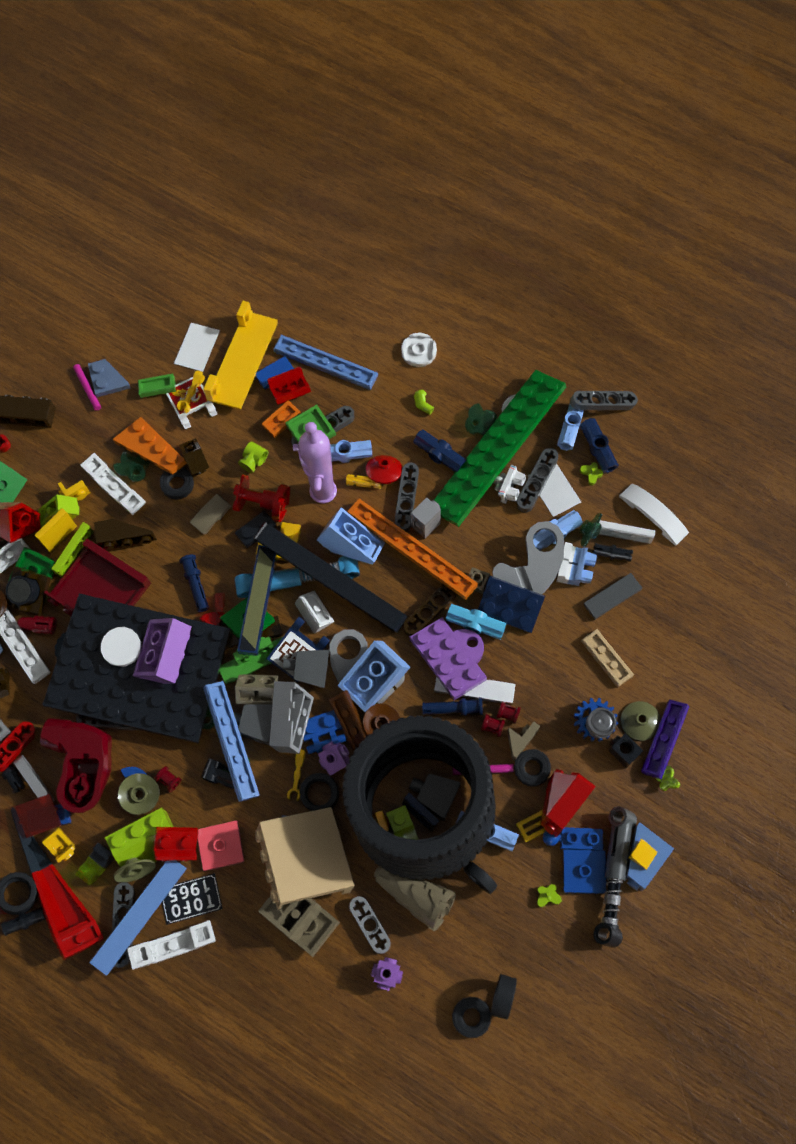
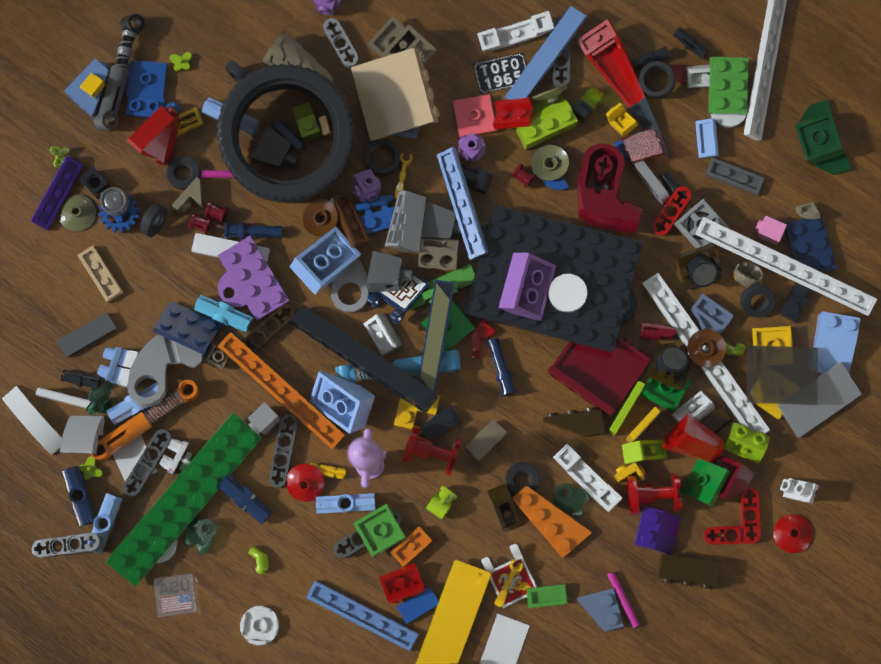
camera: 175 degrees left, 10 degrees up
(53, 443) = (657, 530): none -> dark purple slope
(56, 469) = (646, 494): none -> red piece
(229, 809) = (471, 153): none -> medium lavender brick
(498, 370) = (175, 595): none -> clear tile
(548, 512) = (143, 421): none -> orange piece
(557, 710) = (153, 220): none -> black tyre
(603, 497) = (82, 434): none -> light grey slope

